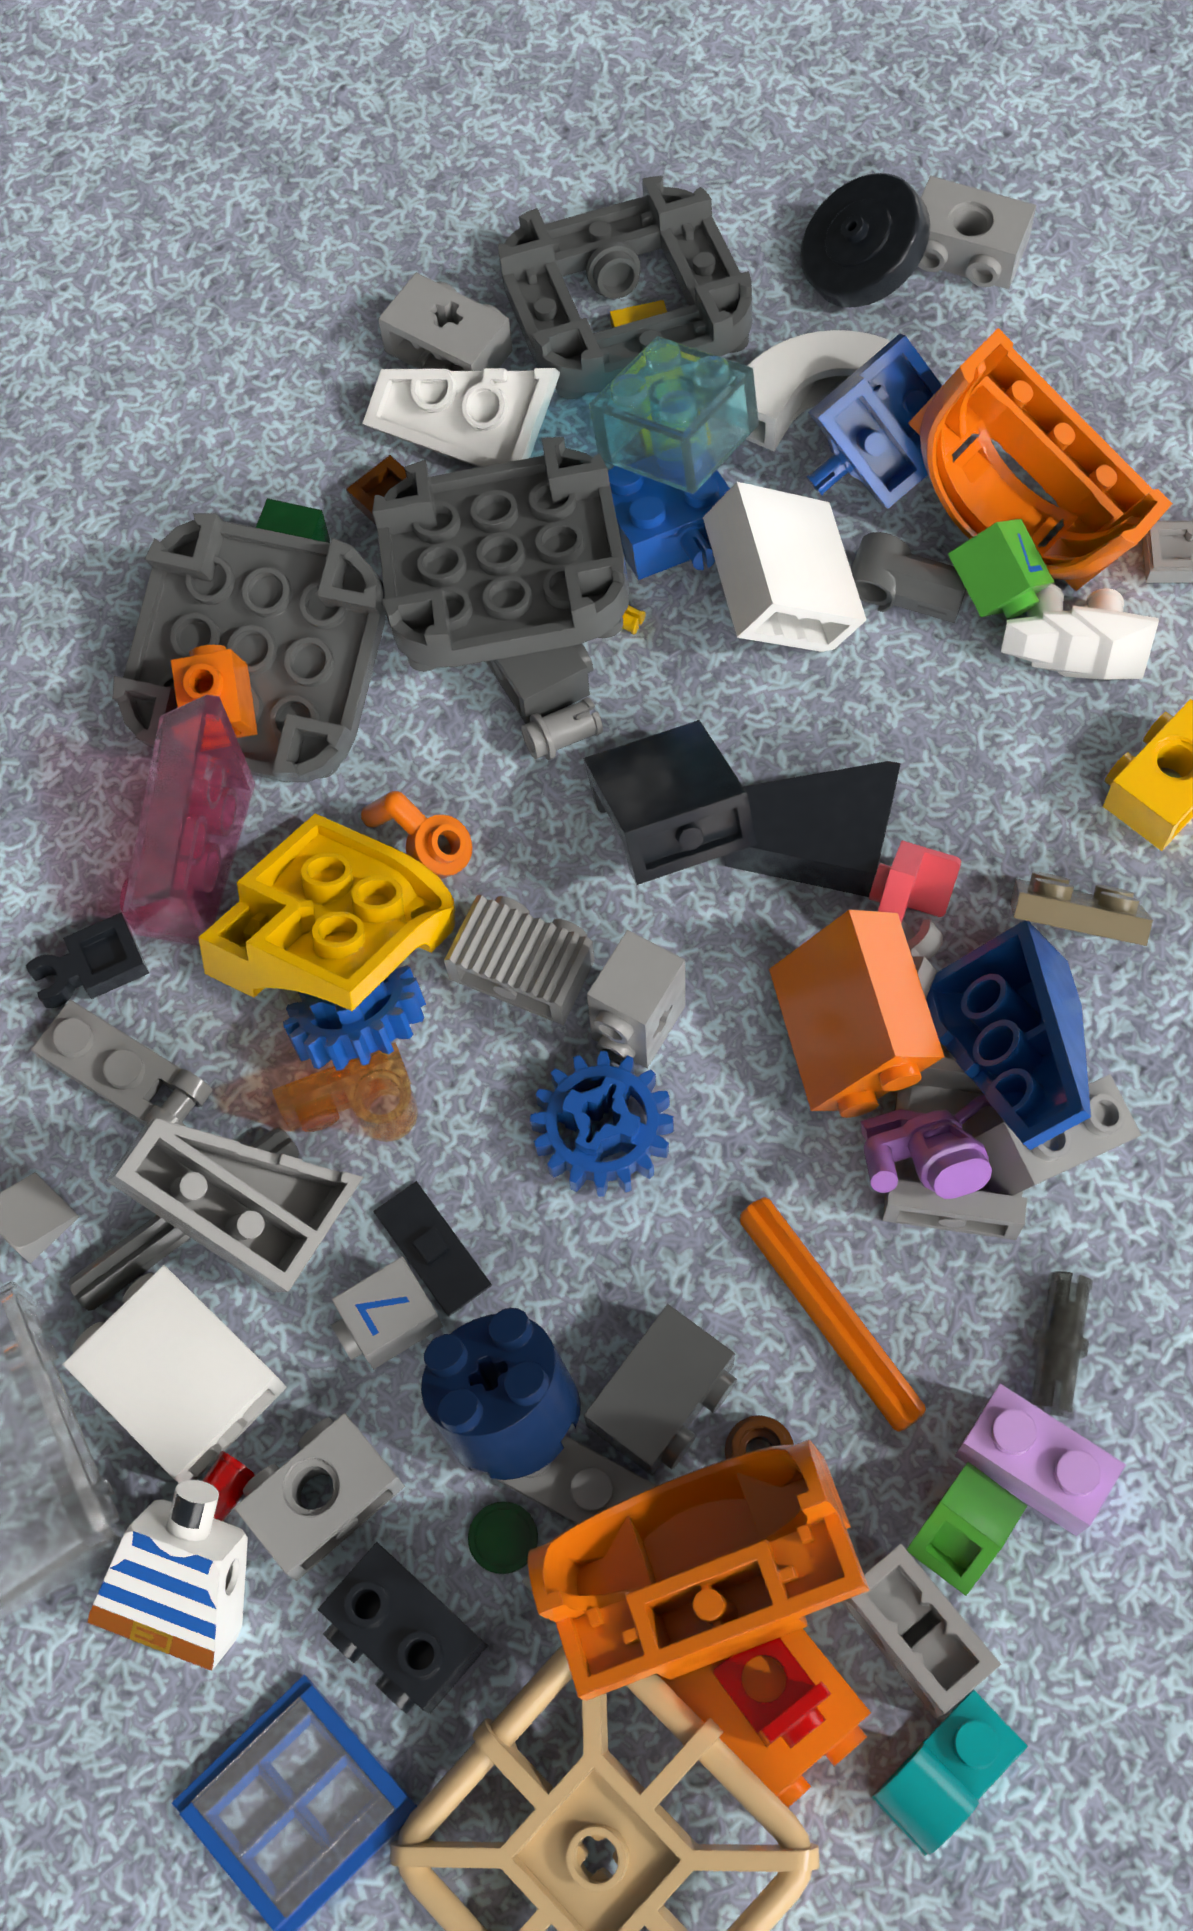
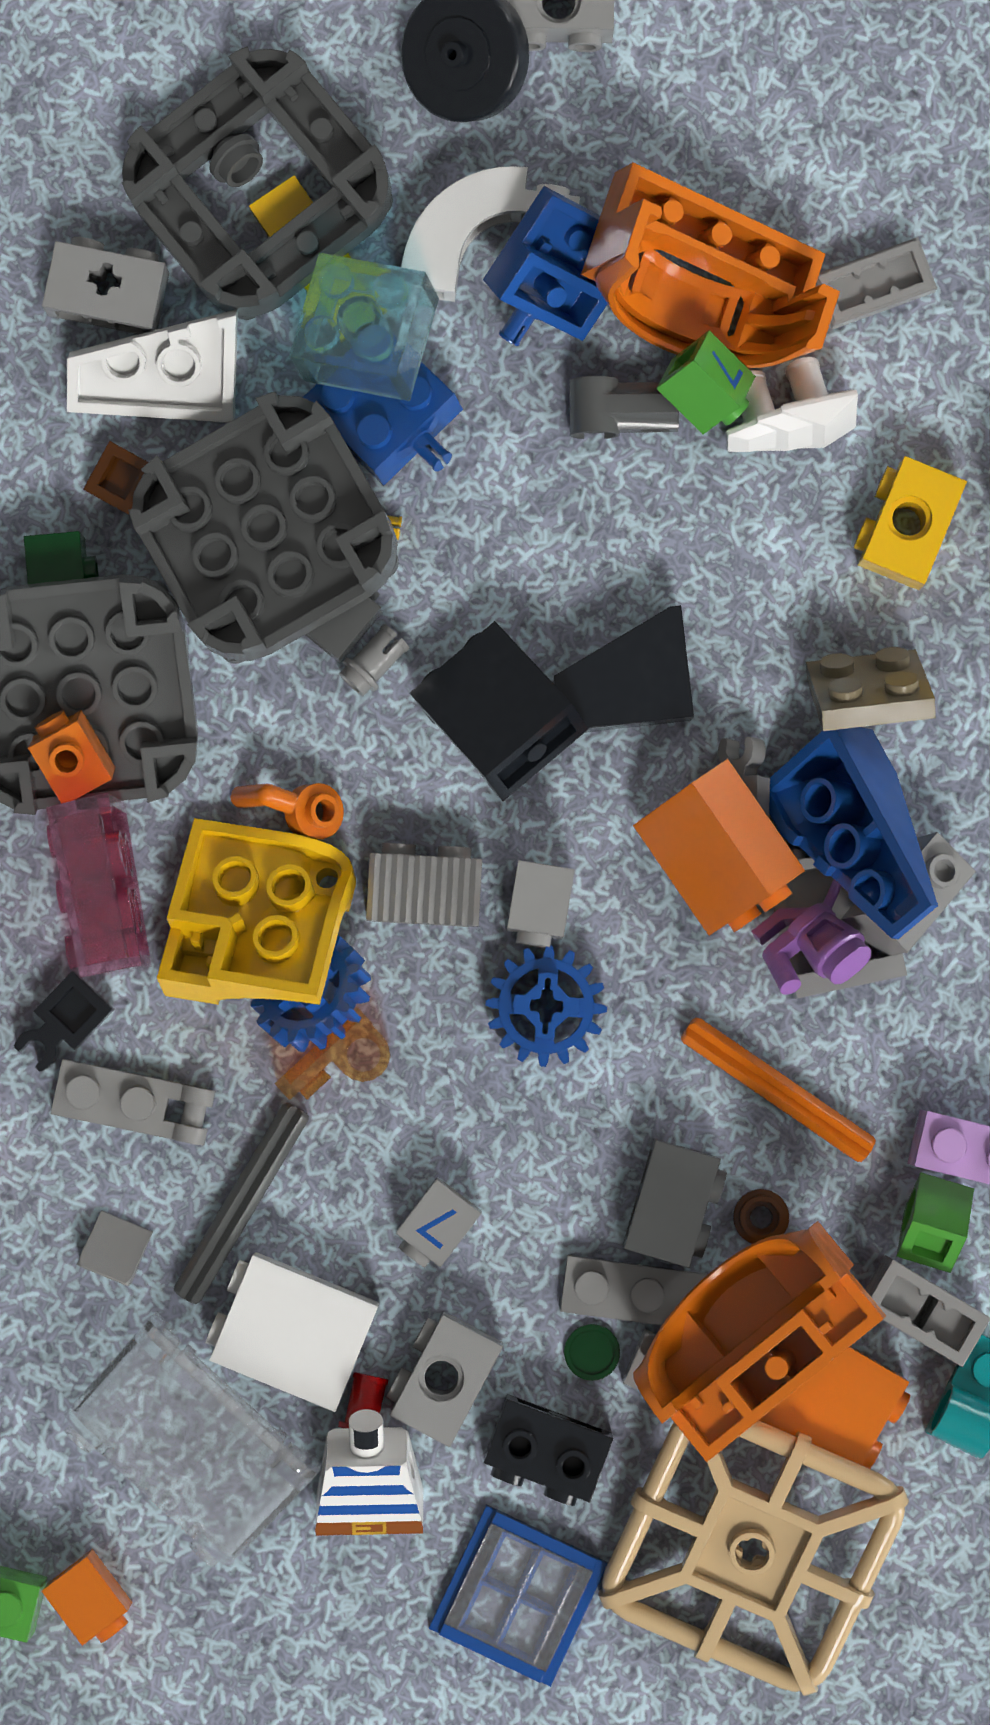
camera: 30 degrees left, 20 degrees up
(235, 1199) = (289, 1184): light grey wedge -> none
(432, 1248) = (447, 1152): black piece -> none
(500, 1394) = (548, 1228): dark blue brick -> none
(783, 568) = (514, 444): white brick -> none
(788, 1716) = (853, 1411): red bracket -> none
(916, 880) = (724, 698): coral bracket -> none
(1061, 1343) = (961, 1050): clear smoke pin -> none

